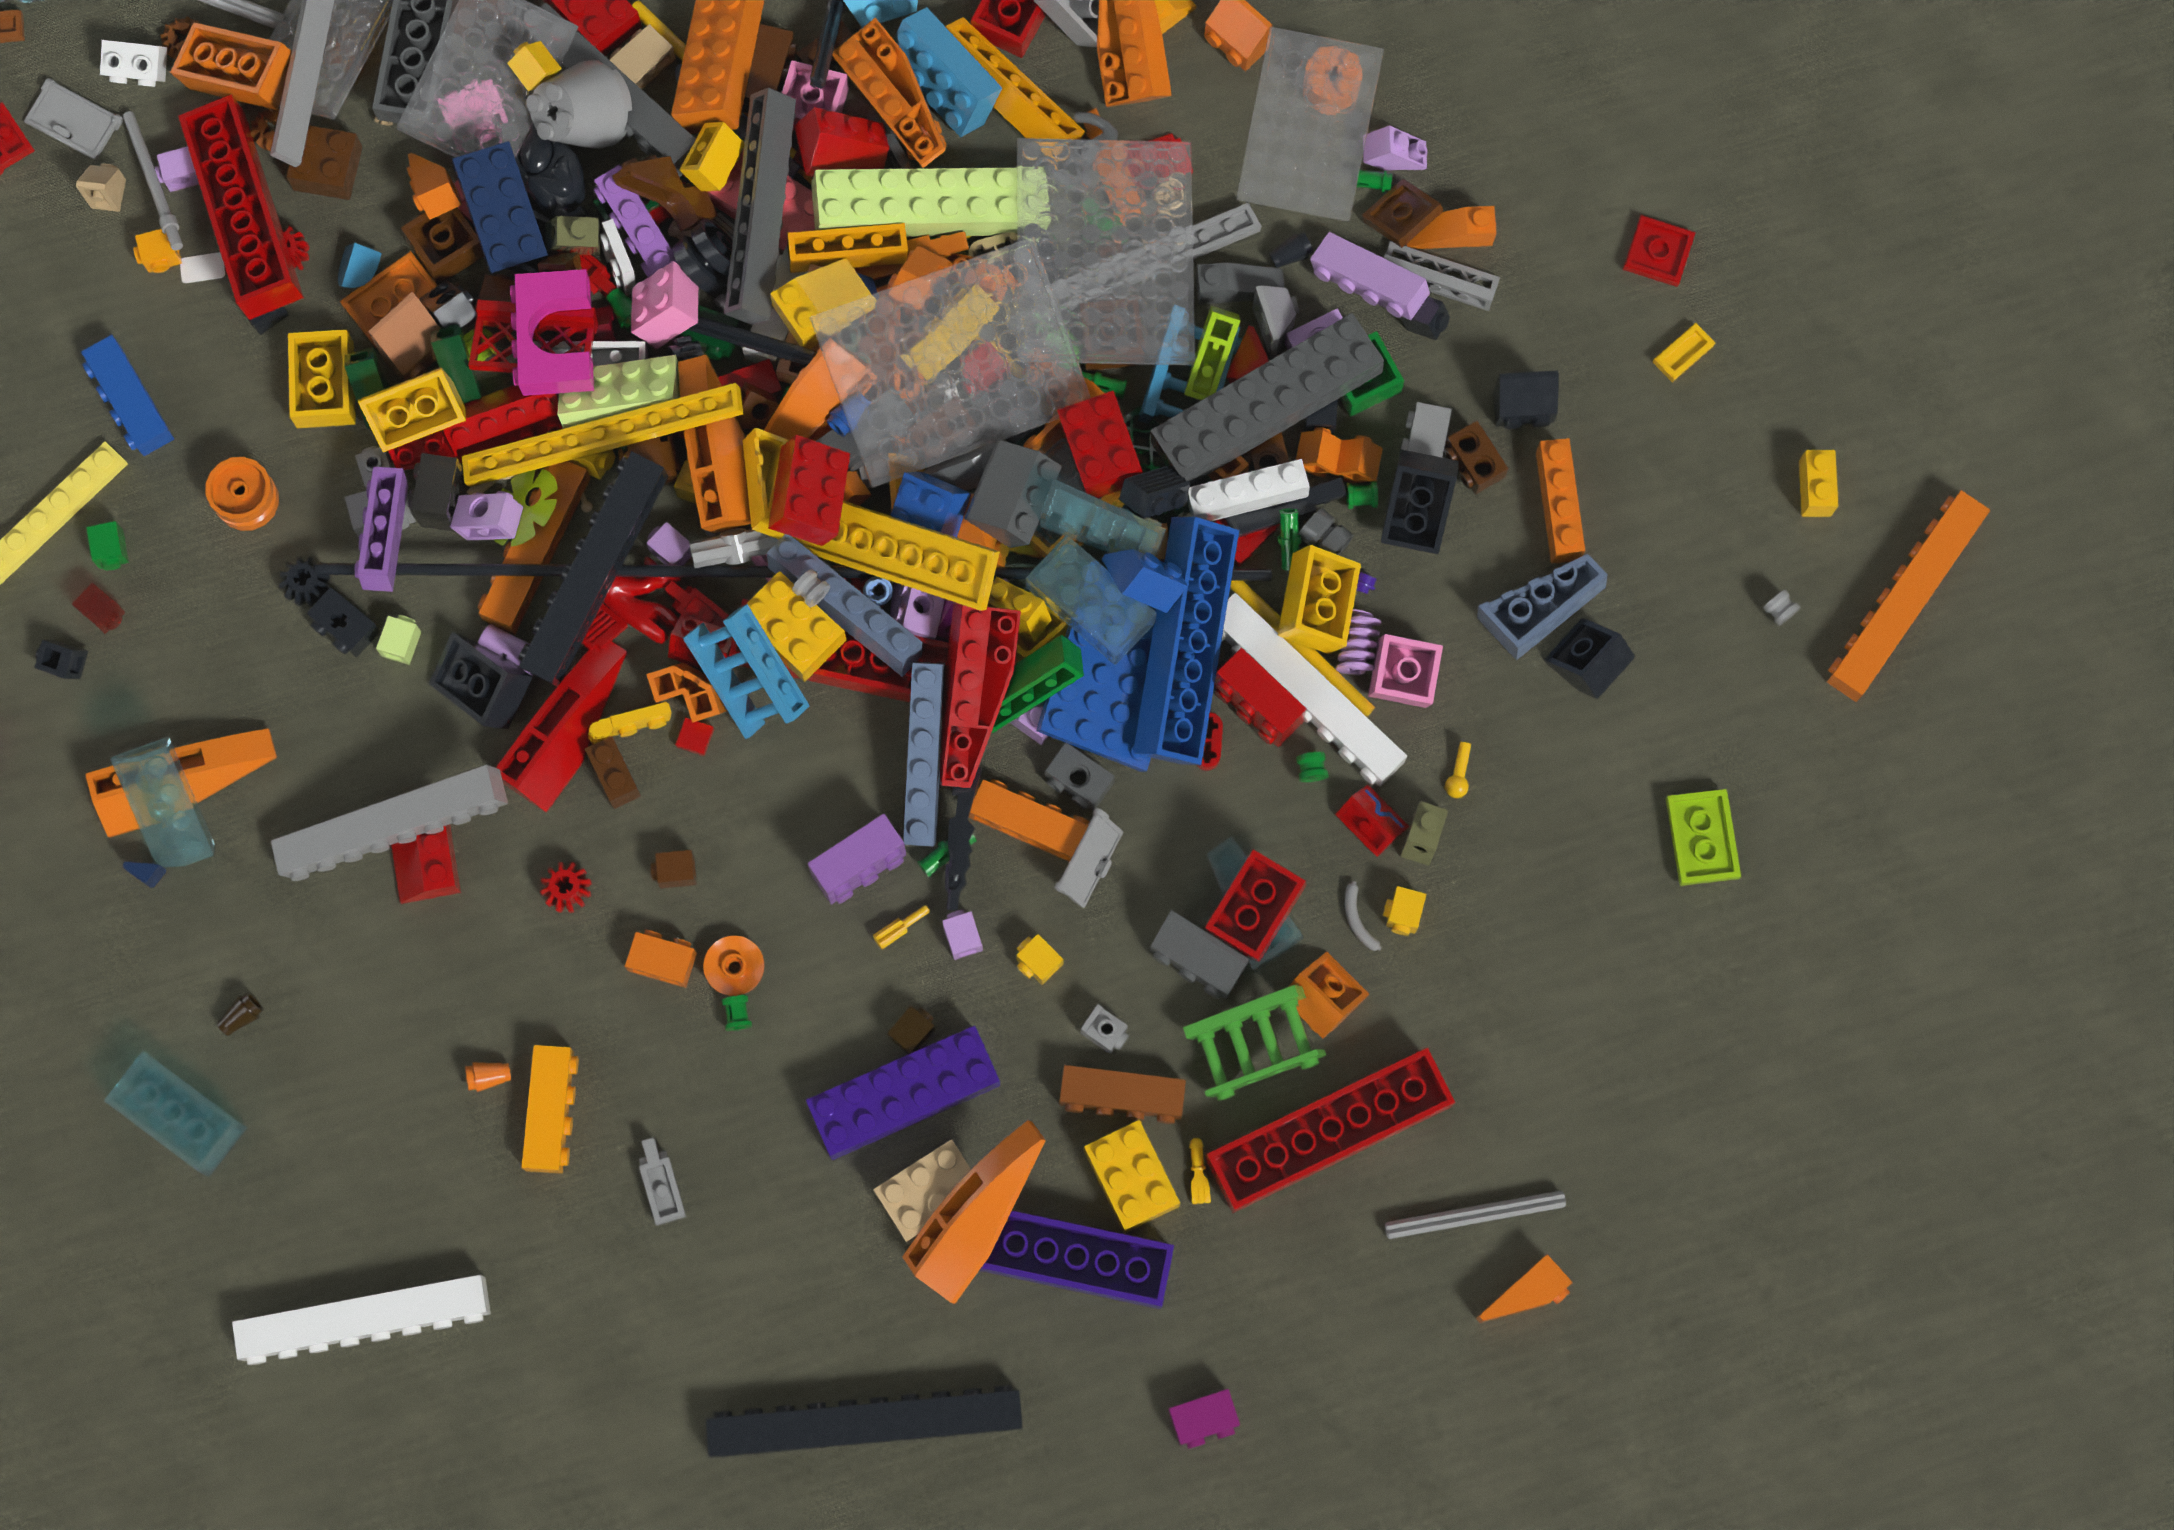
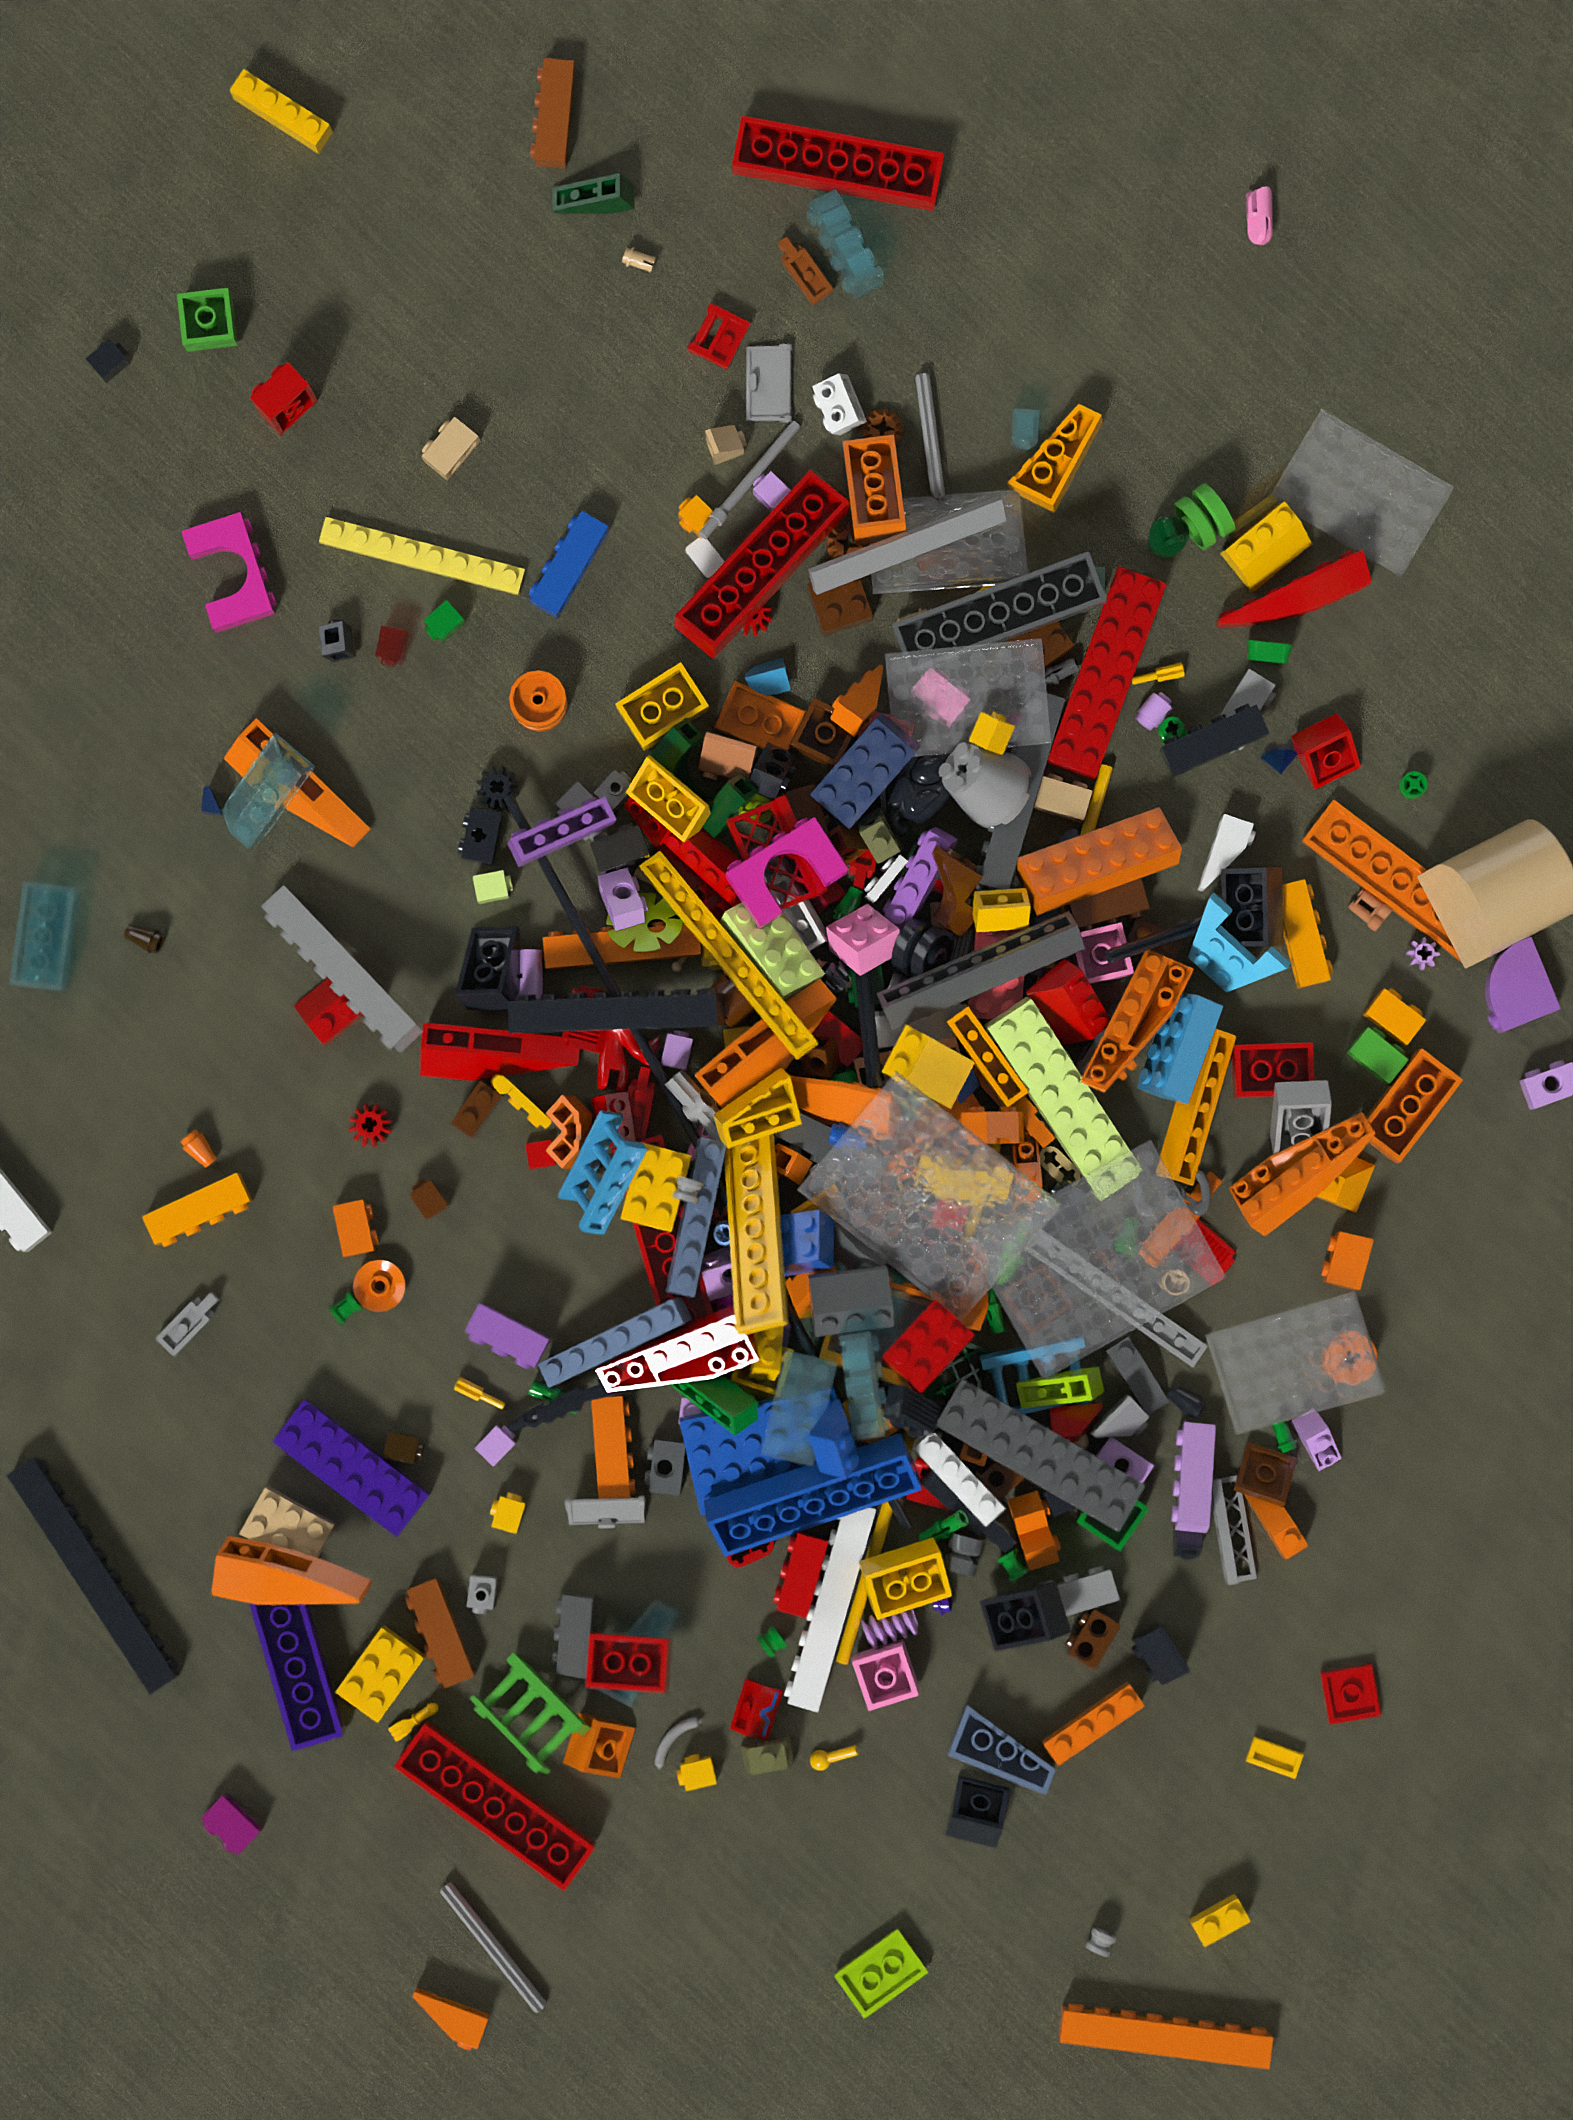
camera: 60 degrees right, 10 degrees up
(809, 490) = (762, 1146): red brick -> none

